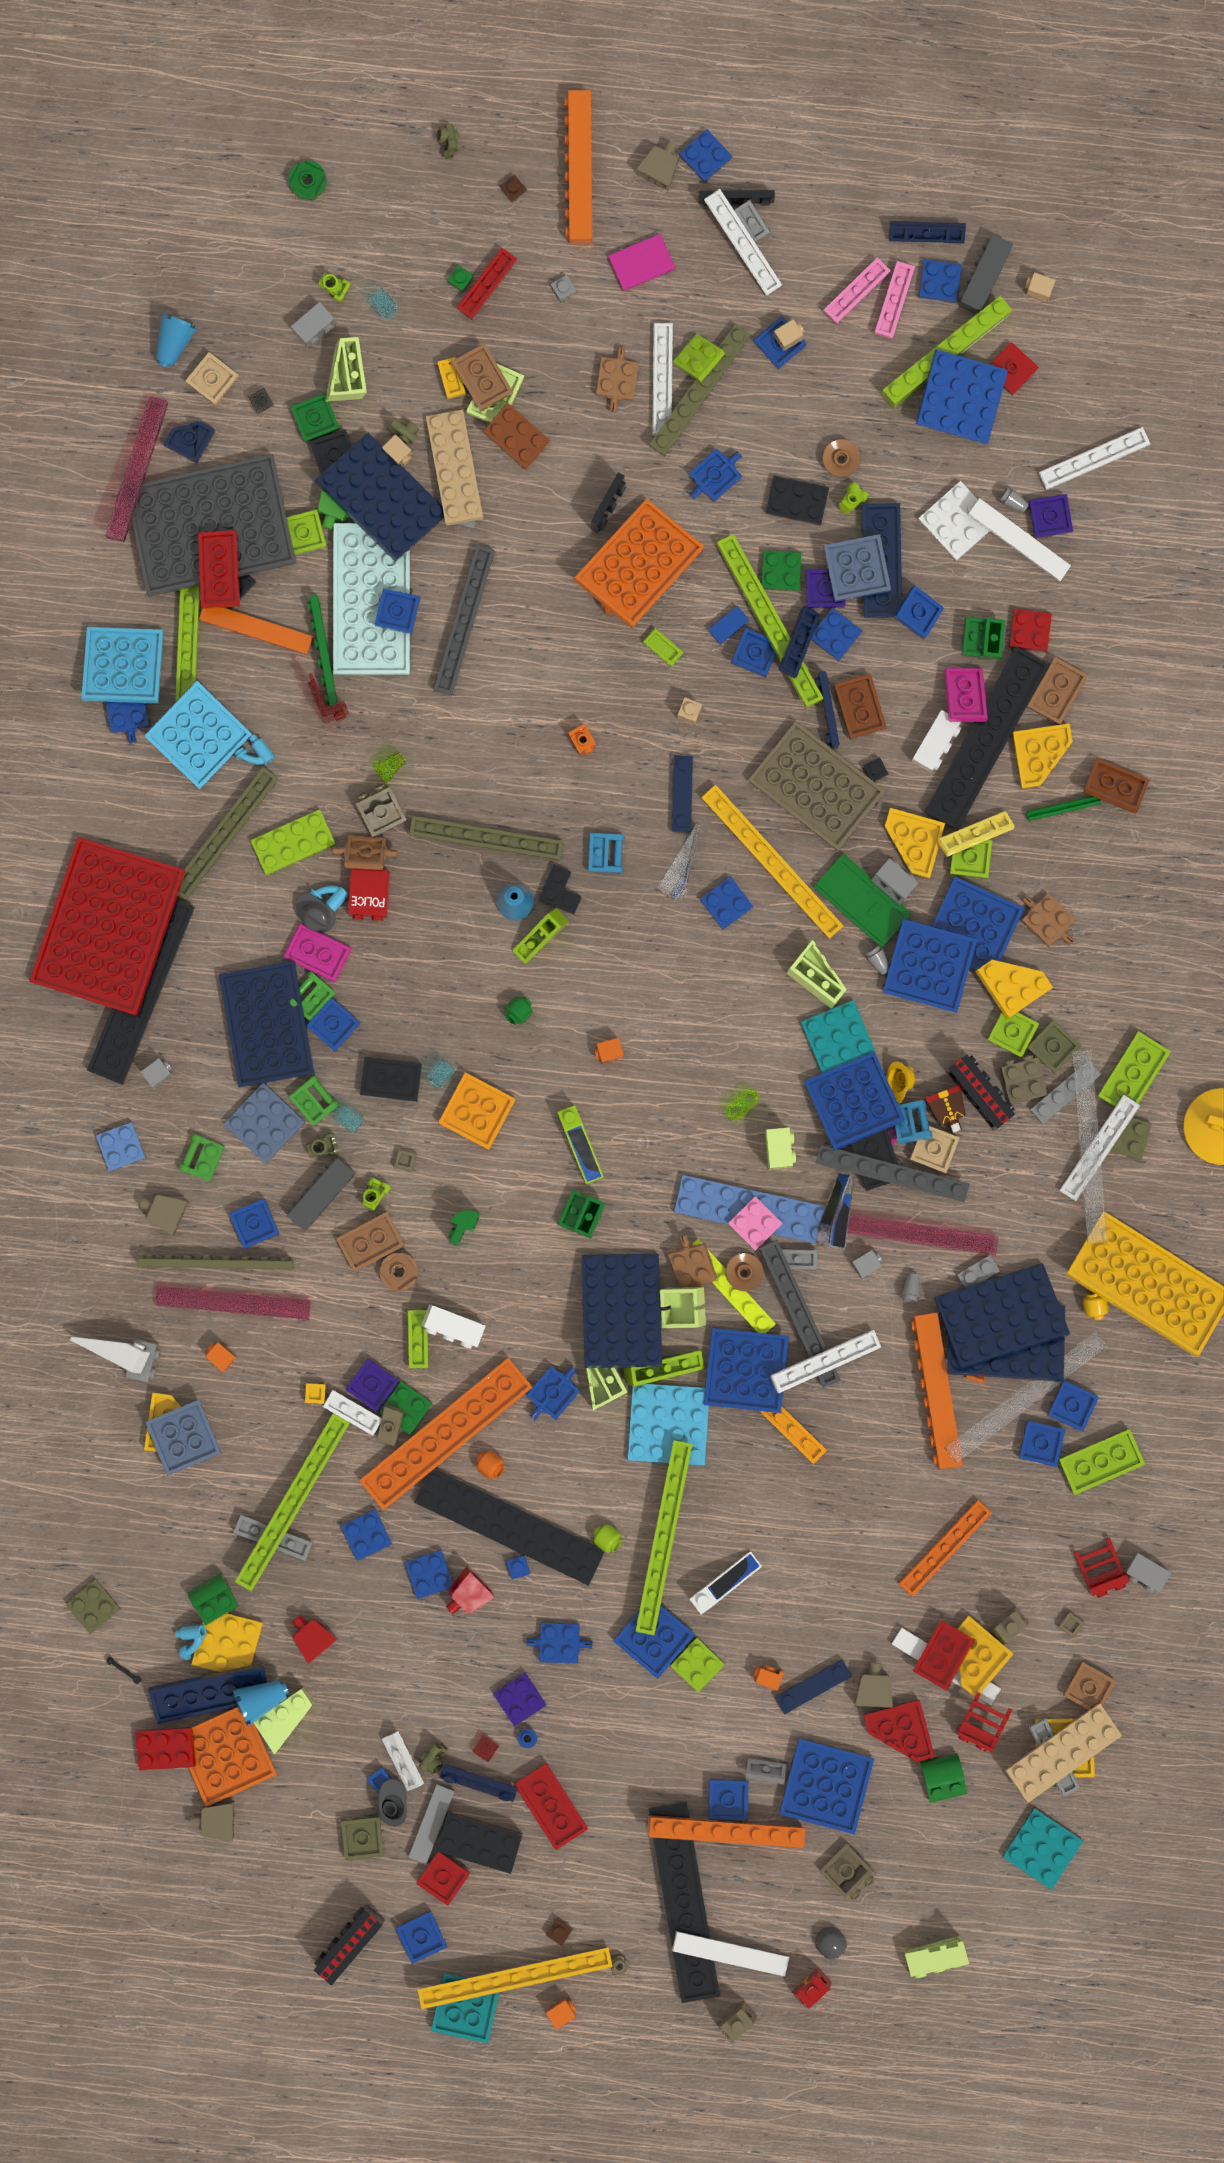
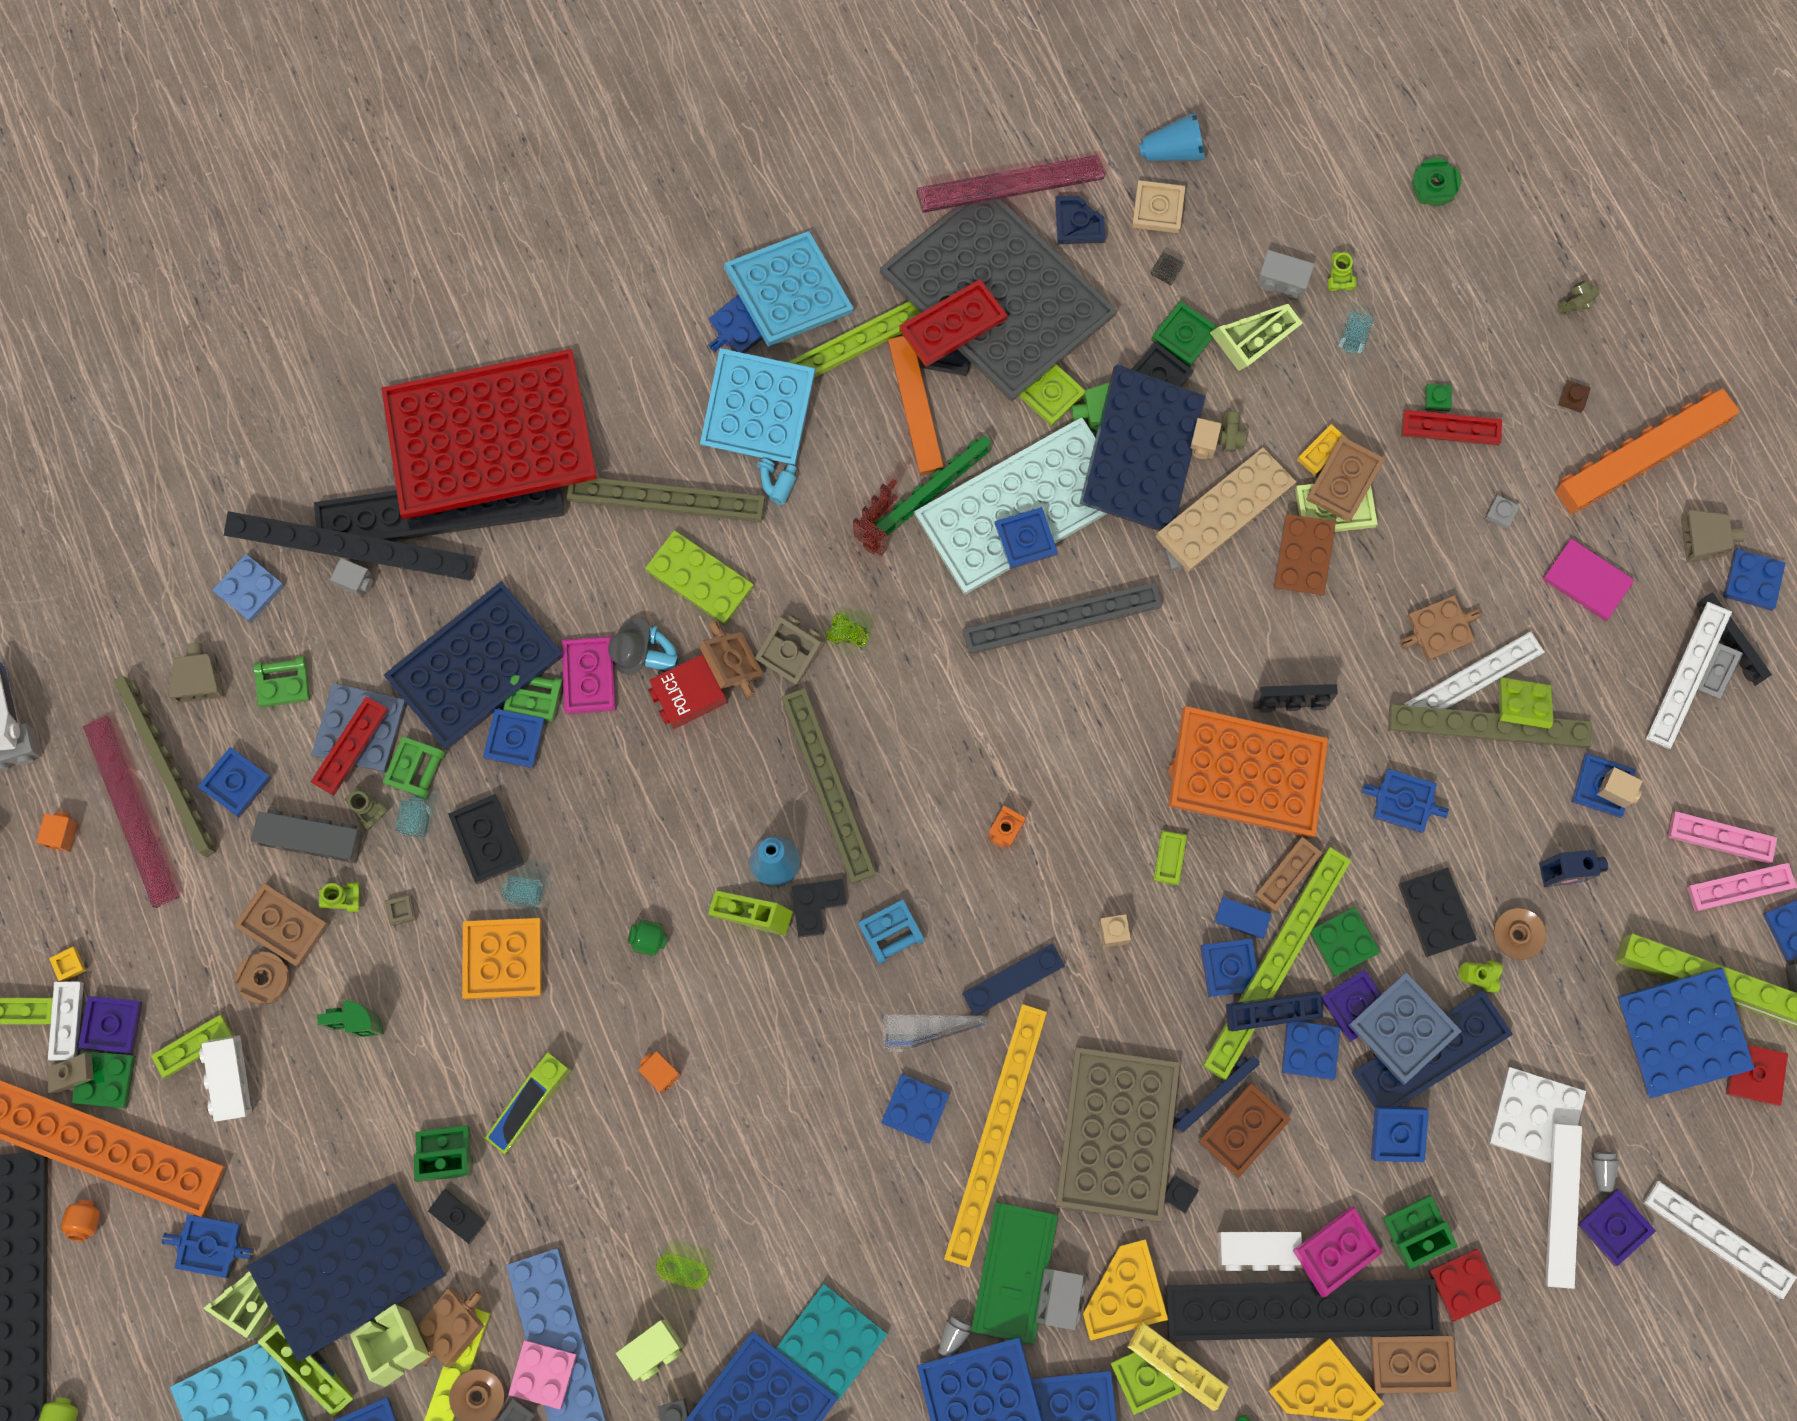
camera: 60 degrees right, 10 degrees down
(134, 1062) = (349, 545): none -> black plate
(277, 1133) = (349, 746): none -> red plate
(625, 1227) = (457, 1216): none -> black plate
(718, 579) = (1288, 874): none -> medium nougat plate
(817, 976) = (888, 1271): yellowish green wedge -> none
(820, 398) = (1572, 868): none -> dark blue torso

